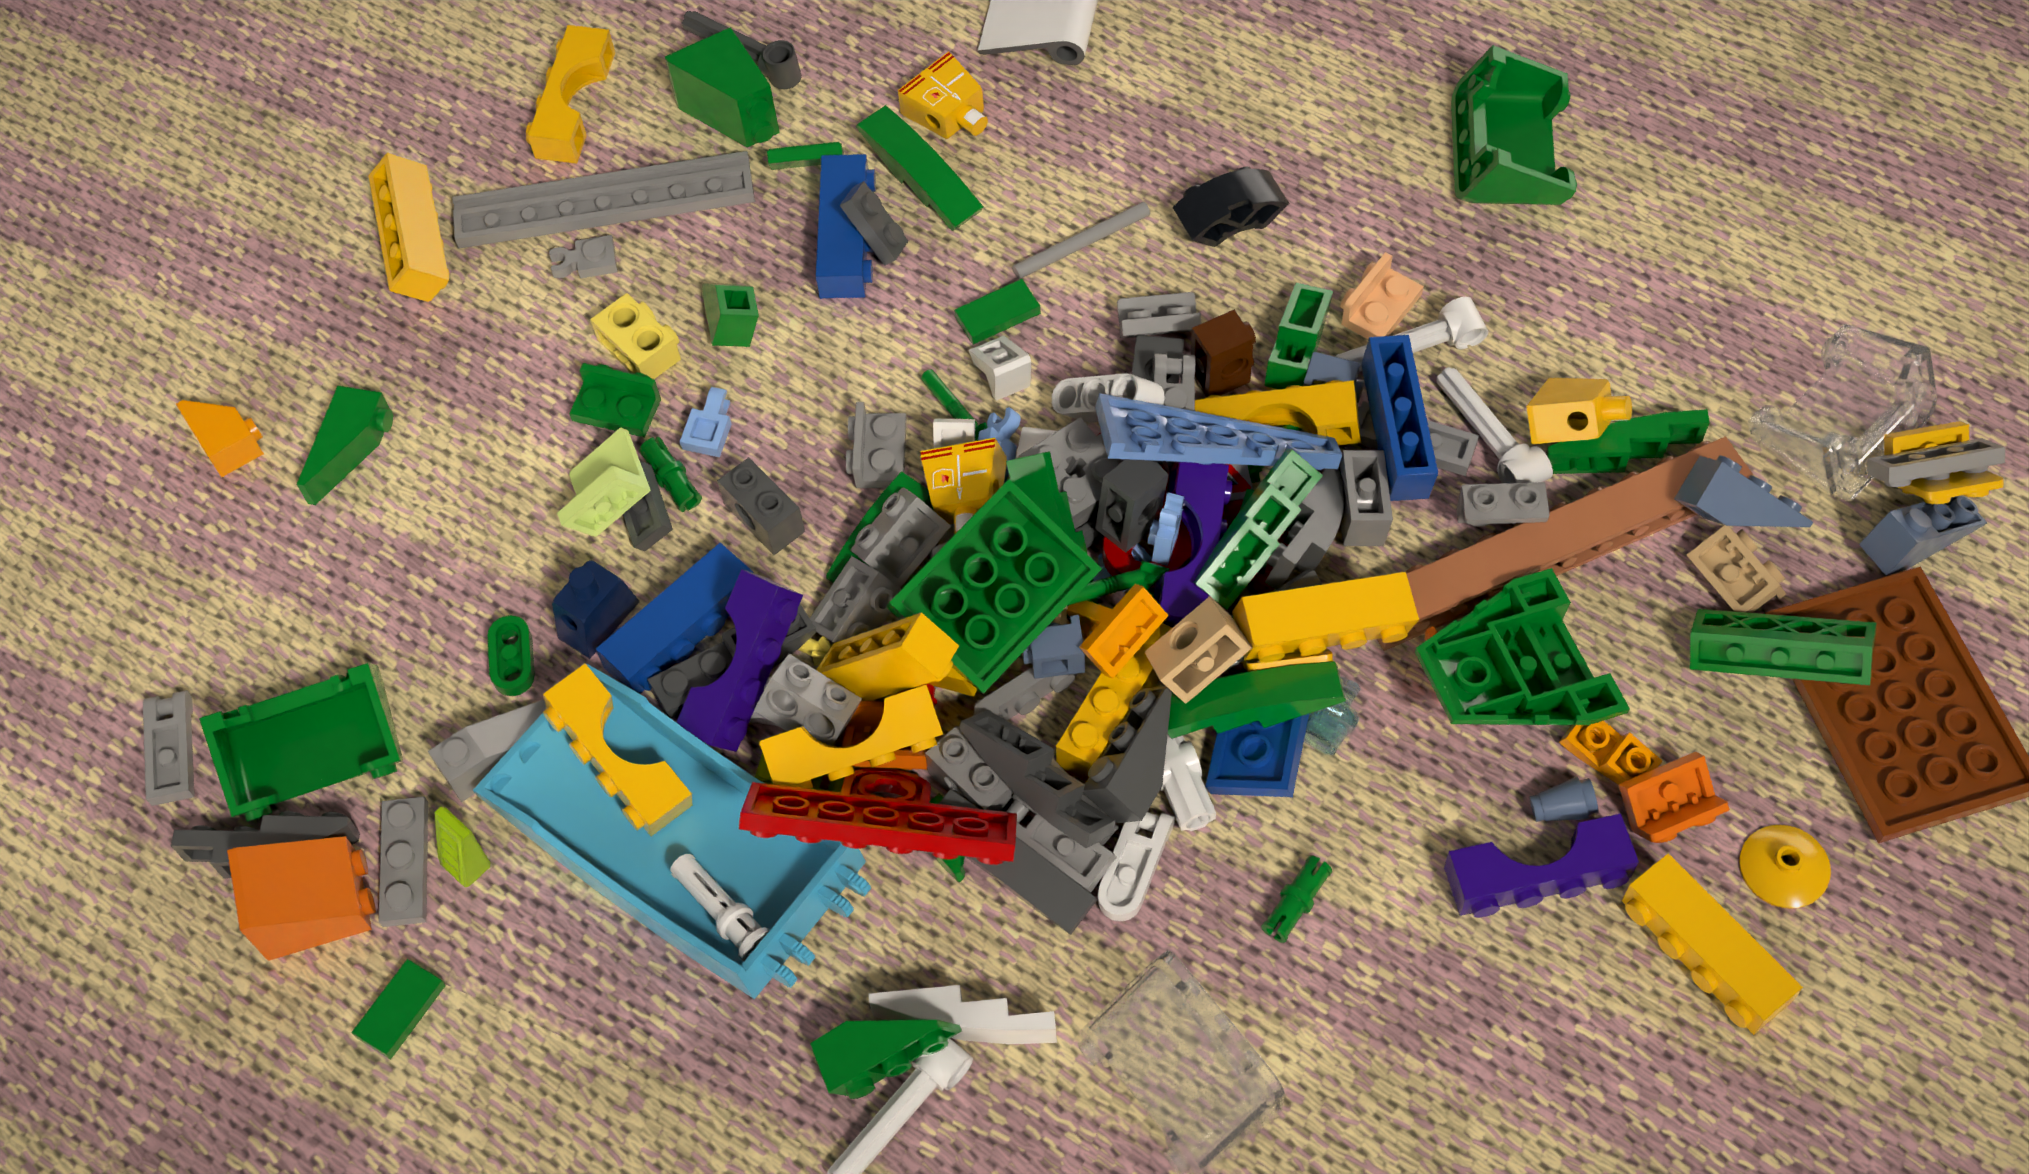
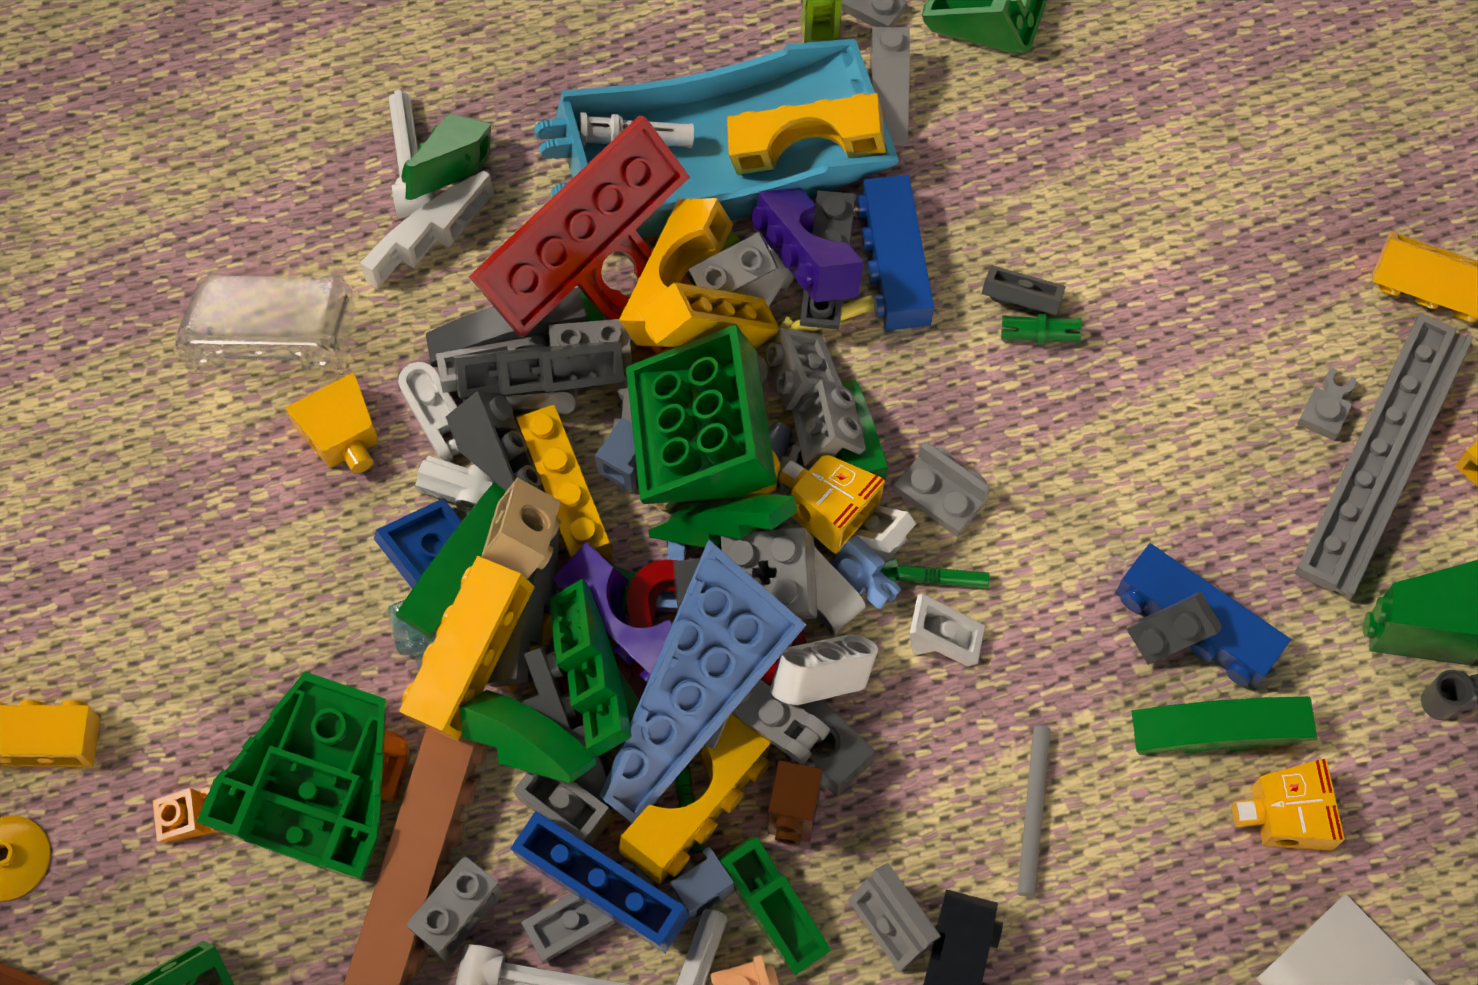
camera: 125 degrees right, 5 degrees up
(222, 434) = (1330, 57): light orange slope -> none
(345, 438) = (1262, 137): green slope -> none
(510, 658) = (962, 136): green plate -> none
(591, 607) = (951, 190): dark blue torso -> none
(605, 485) = (1060, 275): yellowish green bracket -> none
(616, 399) = (1148, 334): green bracket -> none
(636, 337) = (1197, 374): light yellow brick -> none
(708, 428) = (1065, 378): light blue plate -> none
(730, 313) = (1177, 465): green slope -> none
(761, 506) = (951, 365): dark grey brick -> none
(802, 155) = (1310, 640): green tile -> none
(997, 311) = (1010, 681): green tile -> none
(1119, 632) = (597, 500): light orange bracket -> none
(1146, 576) = (633, 569): green piece -> none
(1157, 314) = (884, 793): light grey bracket -> none
(1165, 531) = (655, 605): light blue plate -> none
(1217, 925) = (336, 424): none -> yellow torso
(1241, 255) = (893, 917): none -> light grey plate
(1296, 898) = (310, 495): green pin -> none
(1352, 521) = (524, 737): none -> green slope
(1487, 879) = (194, 626): dark purple arch -> none
(1565, 801) = (195, 738): sand blue cone -> none
(1671, 799) = (117, 810): orange bracket -> none

